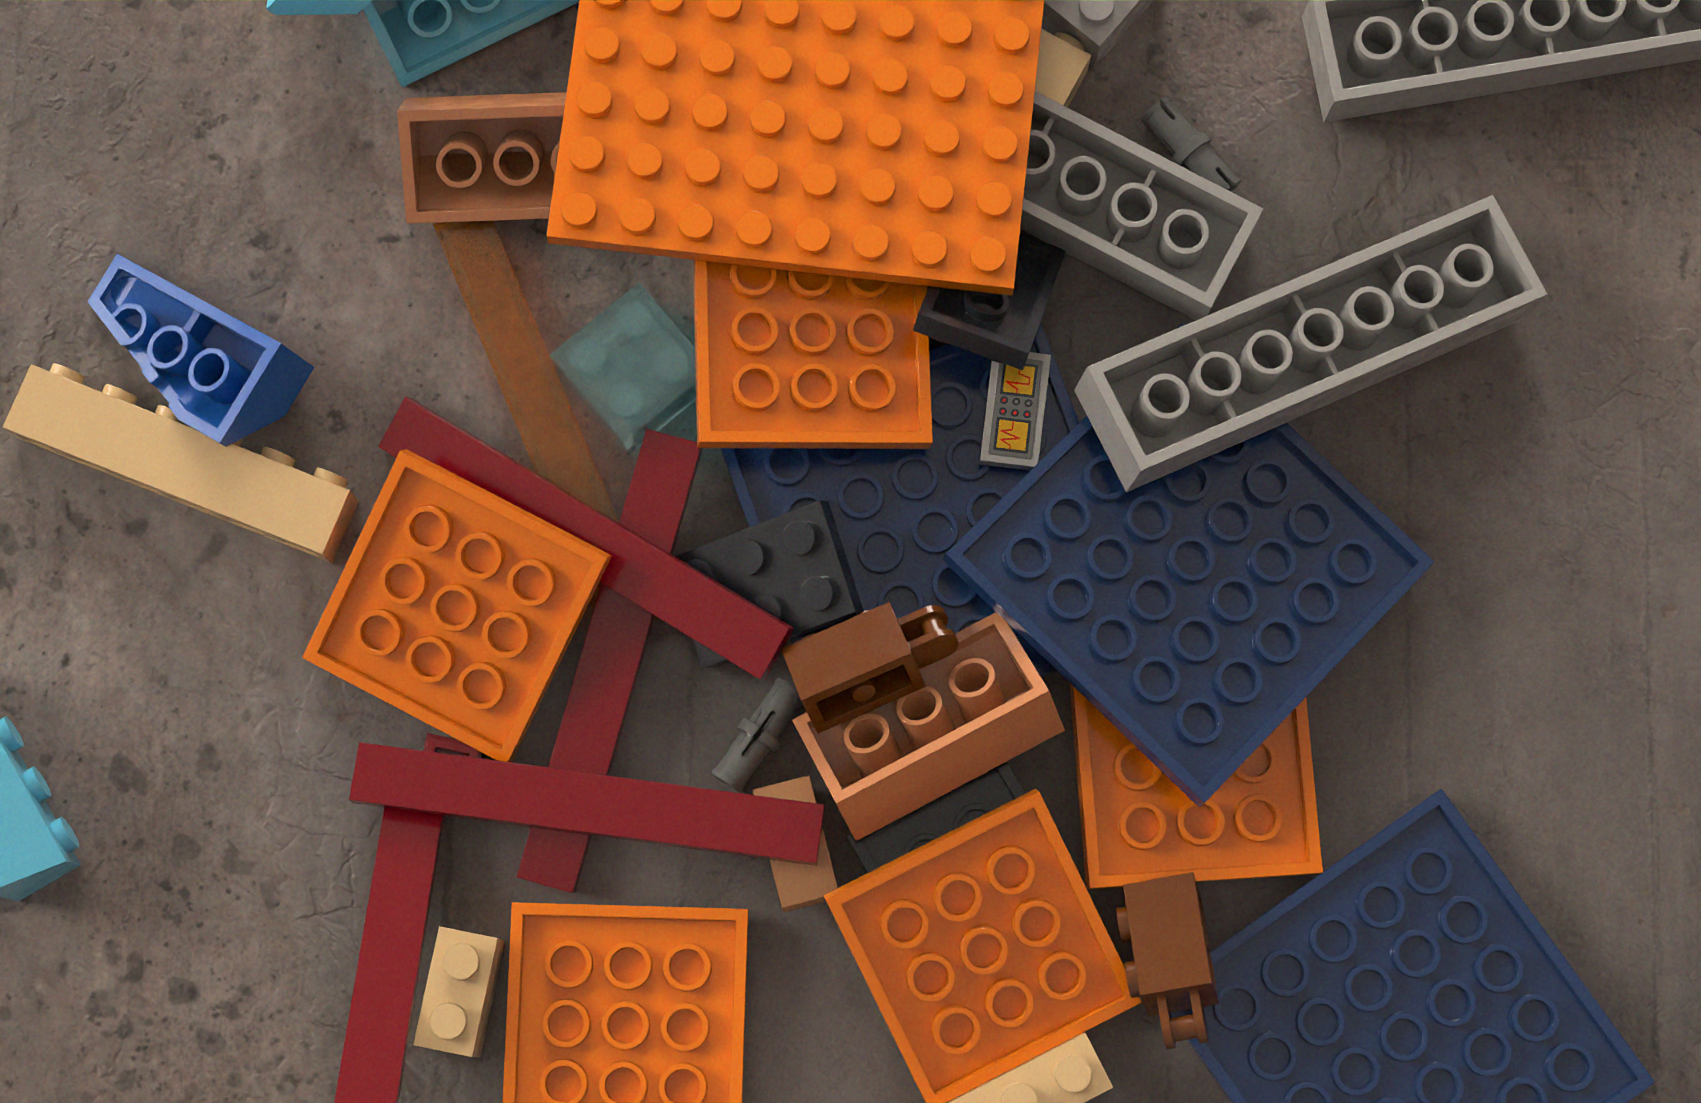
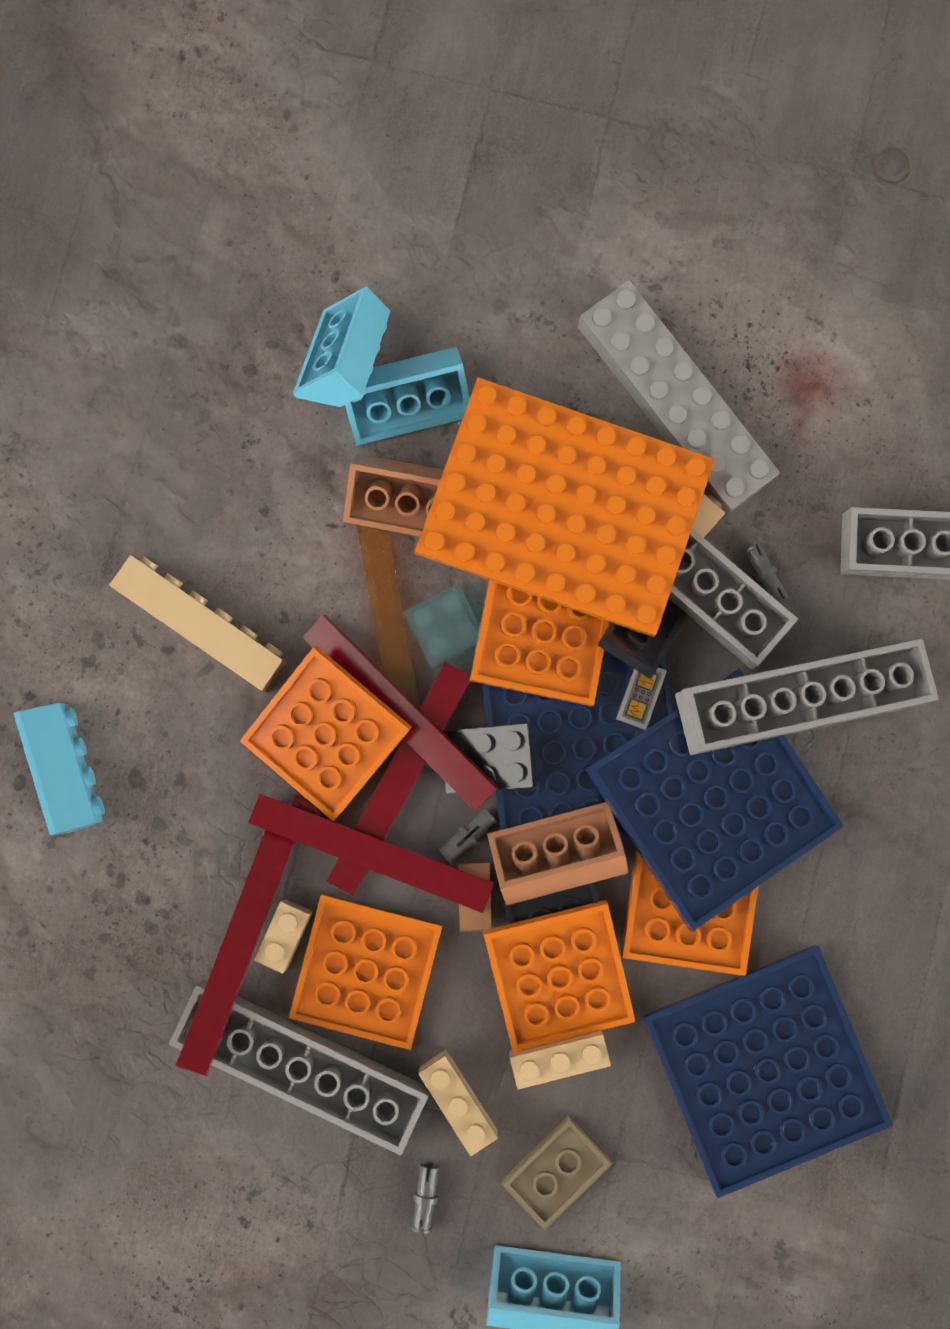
camera: 15 degrees right, 5 degrees up
(201, 360) = (223, 575): blue wedge -> none
(866, 661) = (532, 814): reddish brown brick -> none
(1170, 954) = (656, 1002): reddish brown brick -> none

